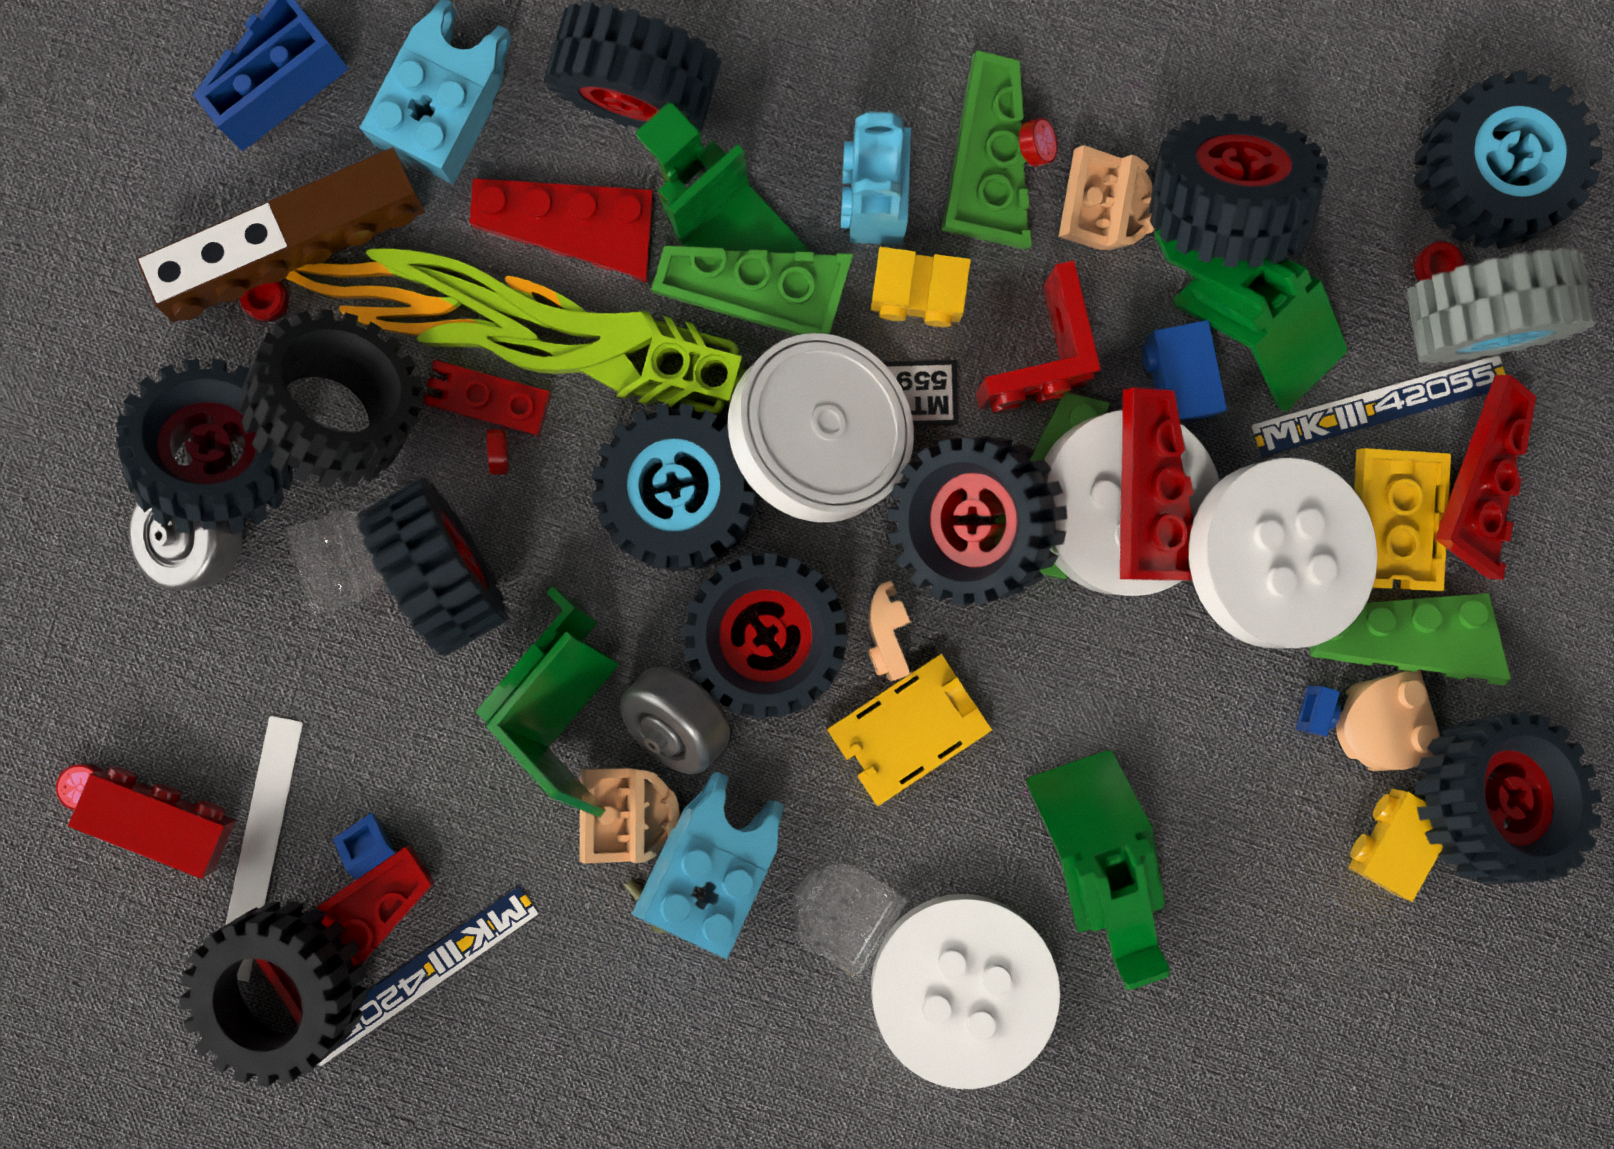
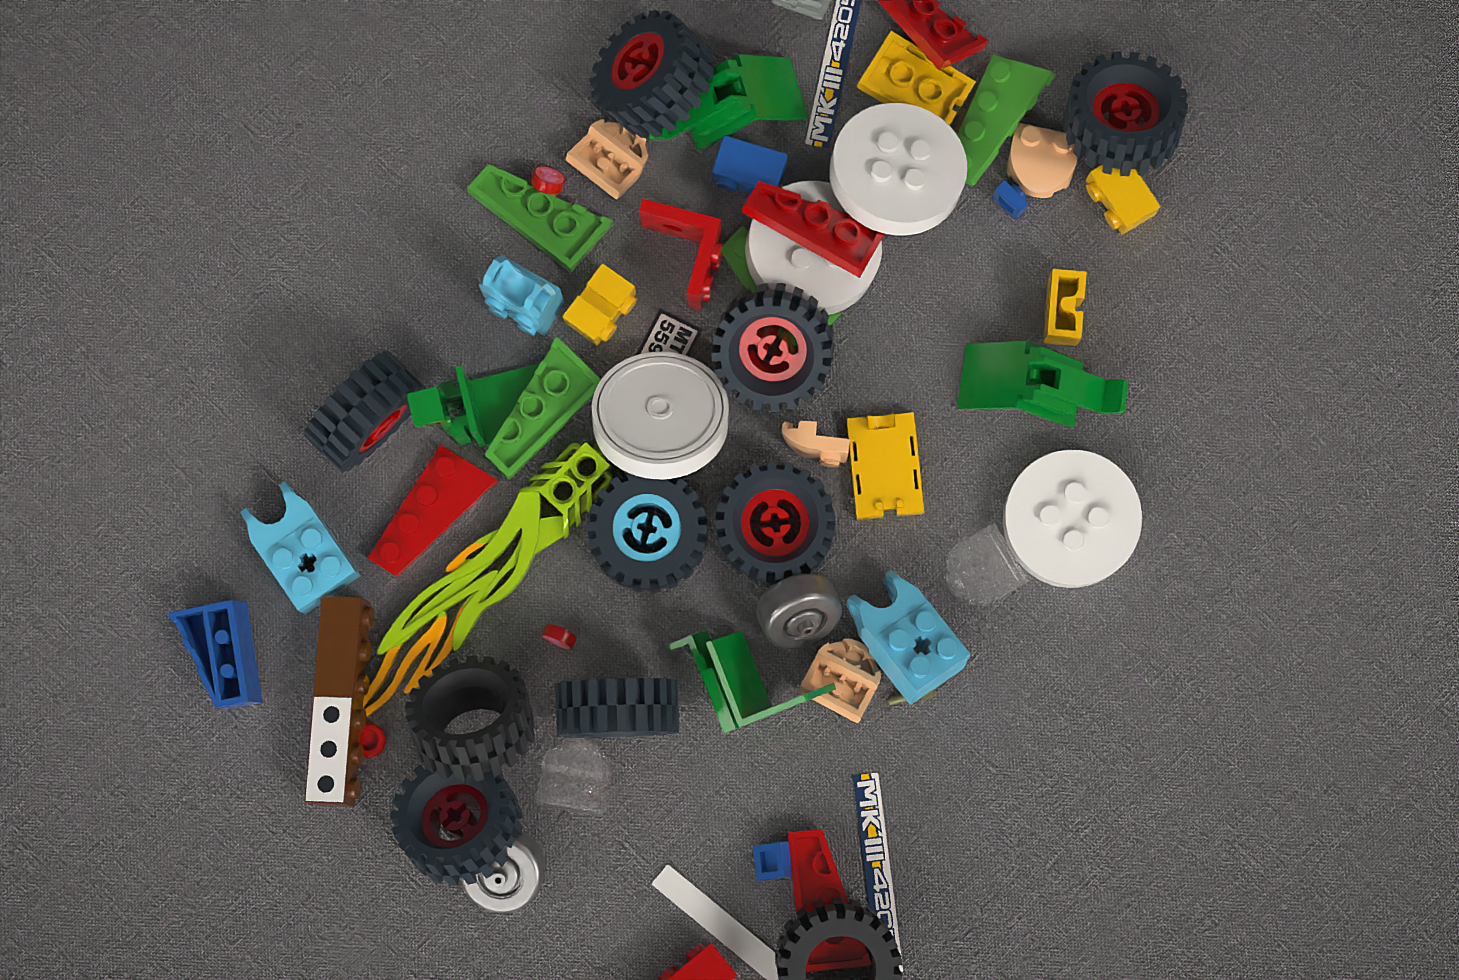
camera: 60 degrees left, 5 degrees down
(489, 398) = (519, 624): red hinge -> none
(1232, 838) = (1064, 293): none -> yellow brick

